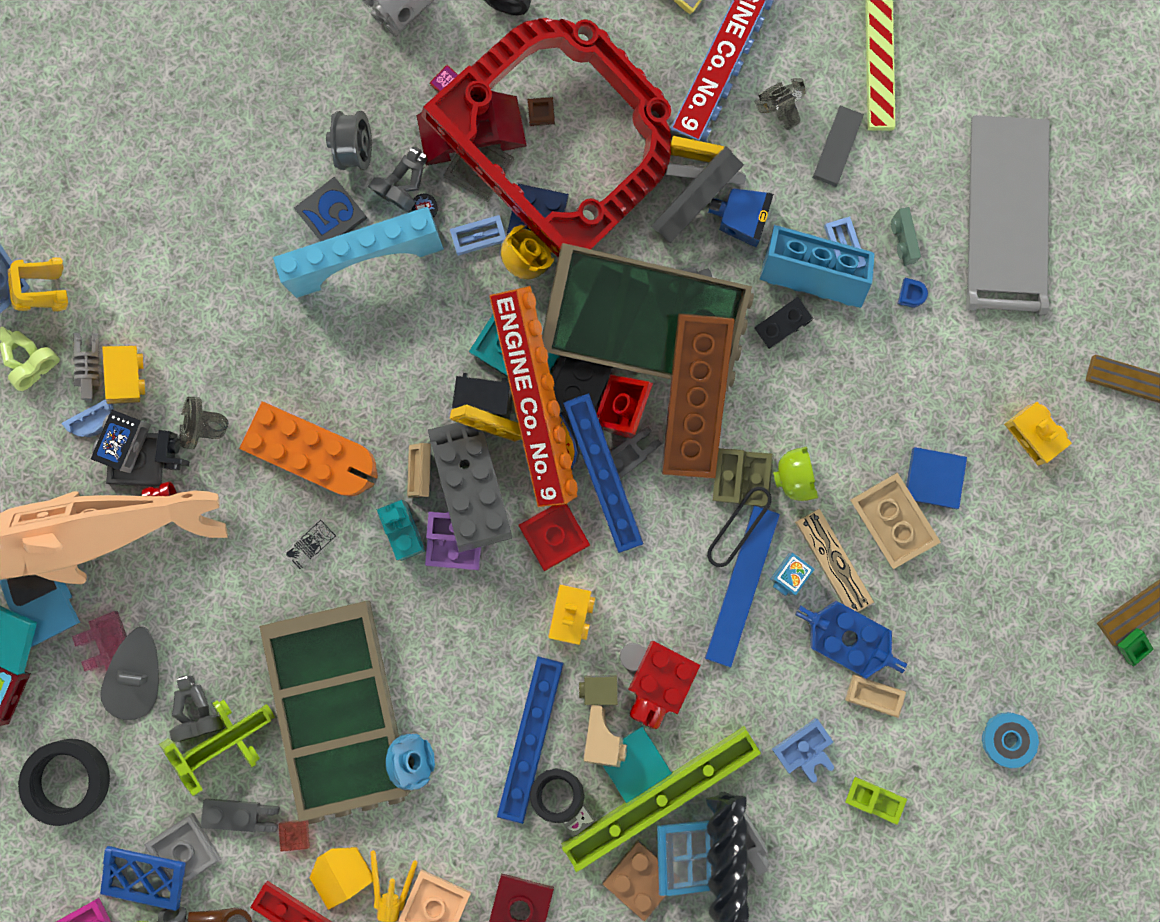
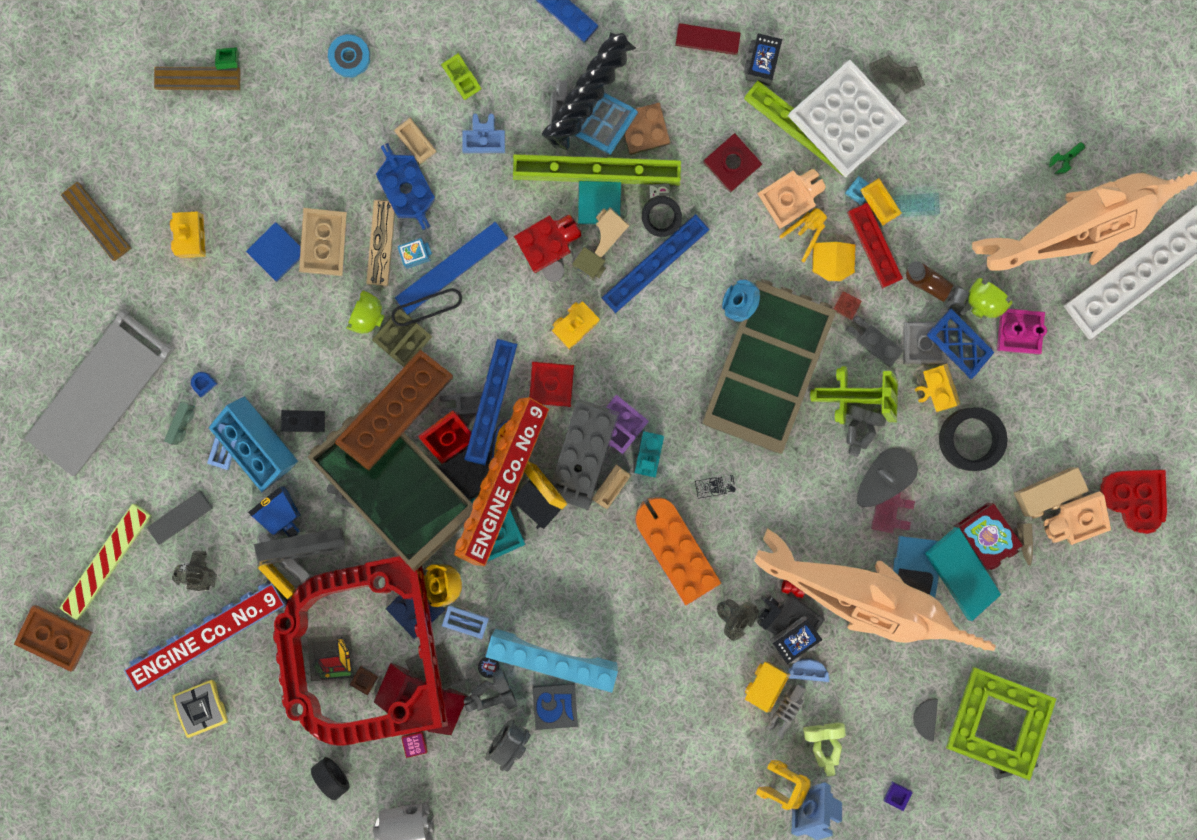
camera: 150 degrees left, 5 degrees up
(134, 813) = (940, 388): none -> yellow brick
(590, 111) = (330, 657): none -> tile

